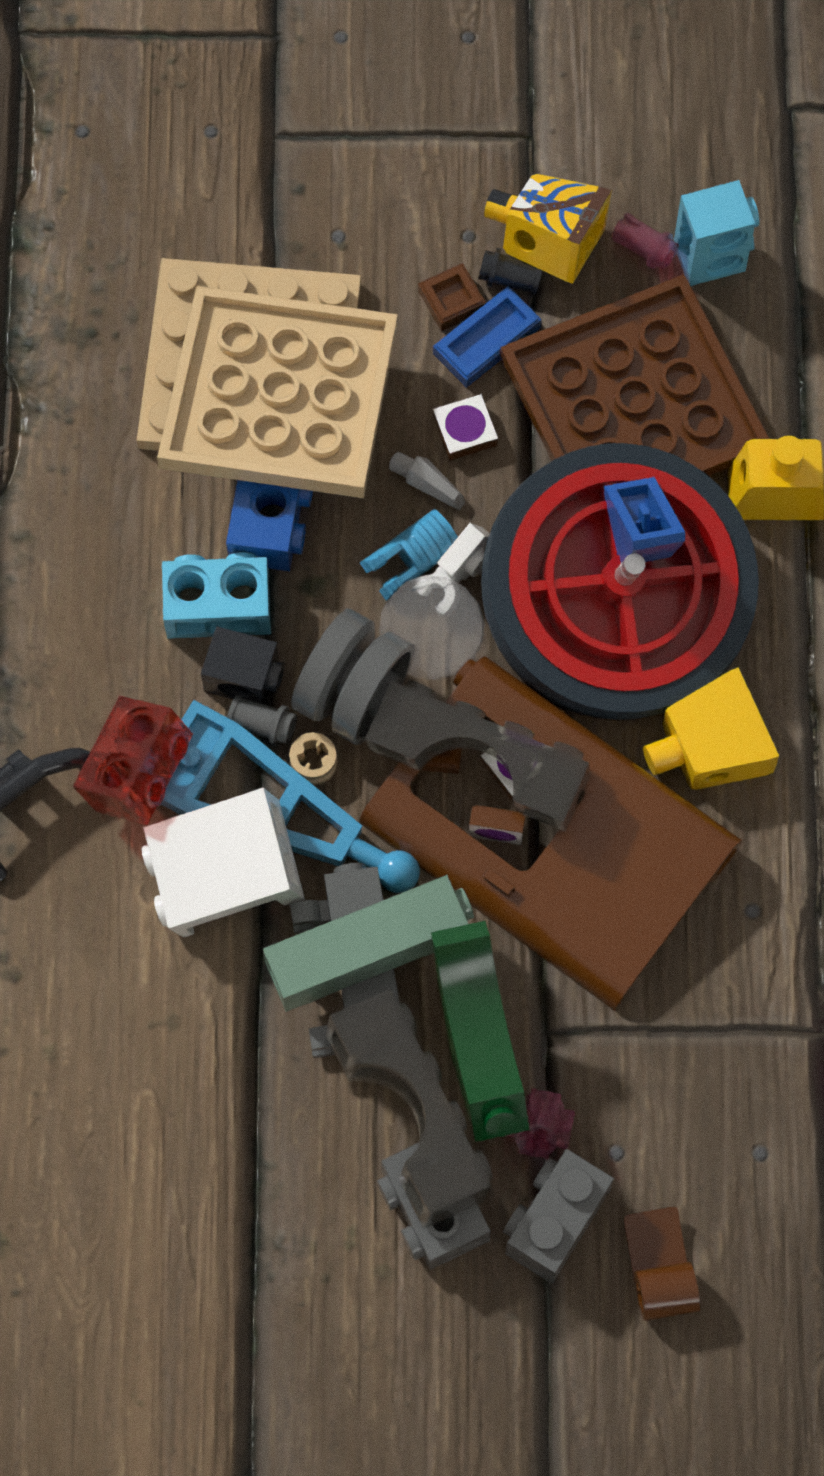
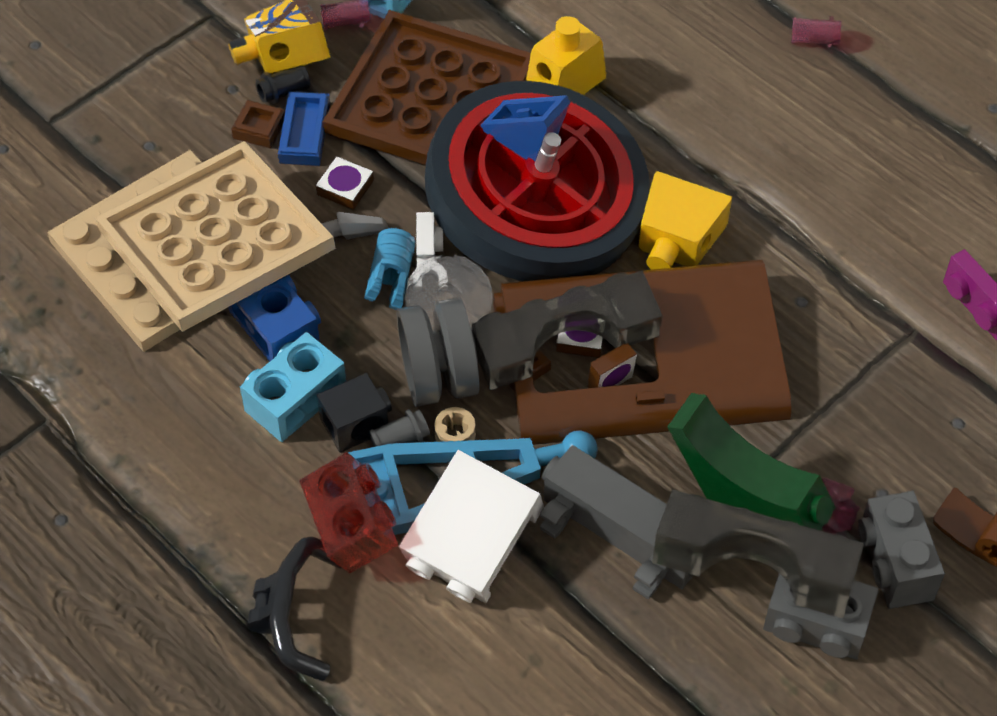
camera: 45 degrees left, 15 degrees down
(364, 942) = (620, 486): sand green brick -> none

